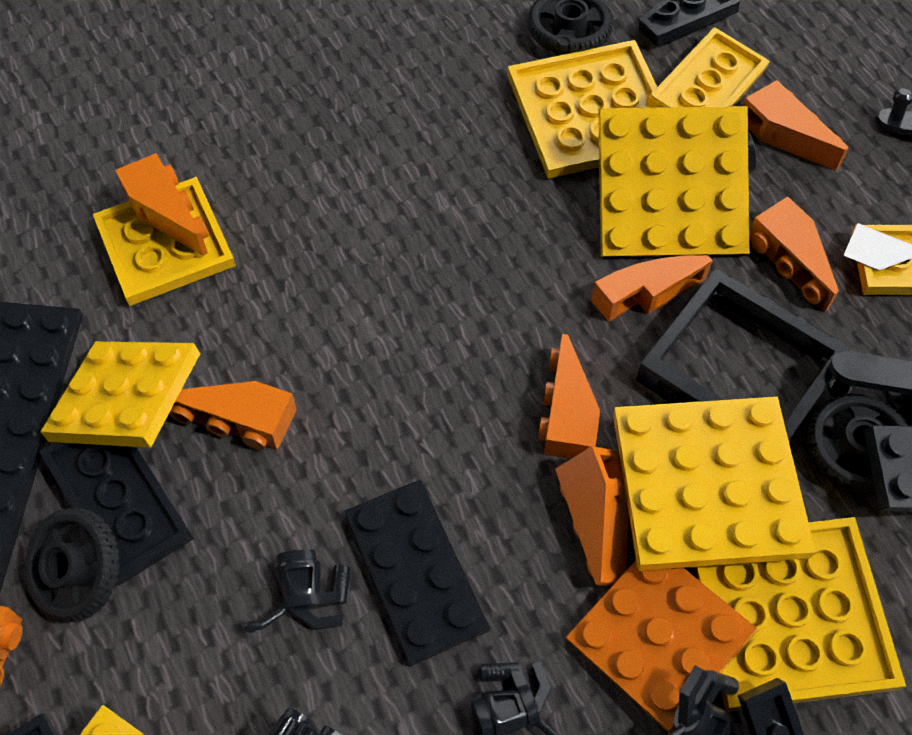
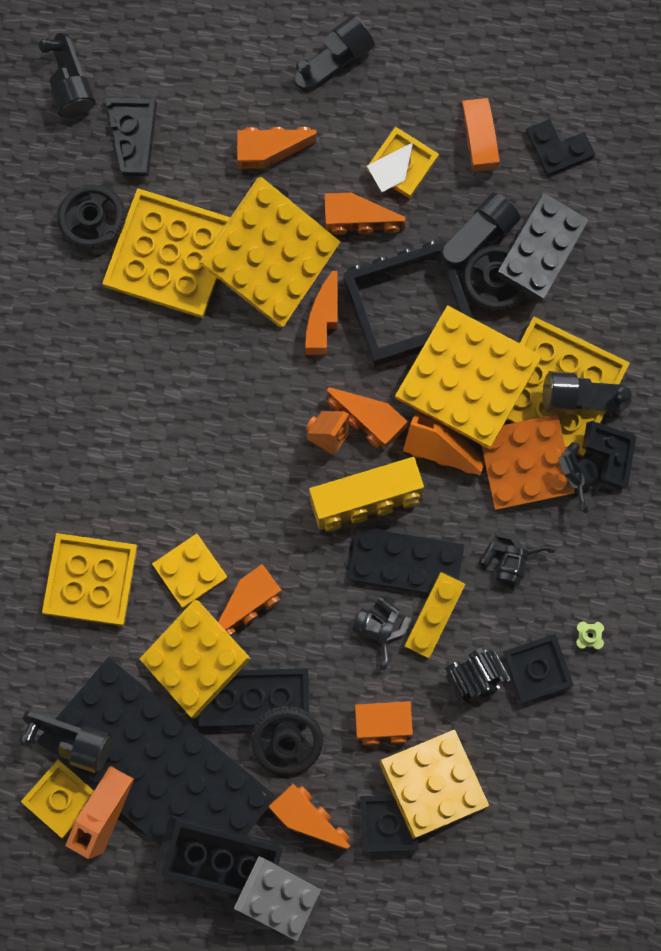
camera: 55 degrees left, 15 degrees up
(158, 203) = (67, 566): orange slope -> none
(169, 677) = (383, 722): none -> orange brick
(241, 333) = (190, 571): none -> yellow plate
(365, 649) = (434, 615): none -> yellow plate
(466, 456) = (366, 494): none -> yellow brick
(514, 370) = (329, 430): none -> orange slope
(710, 75) = (203, 168): yellow tile -> none
(798, 622) = (566, 392): none -> black piece

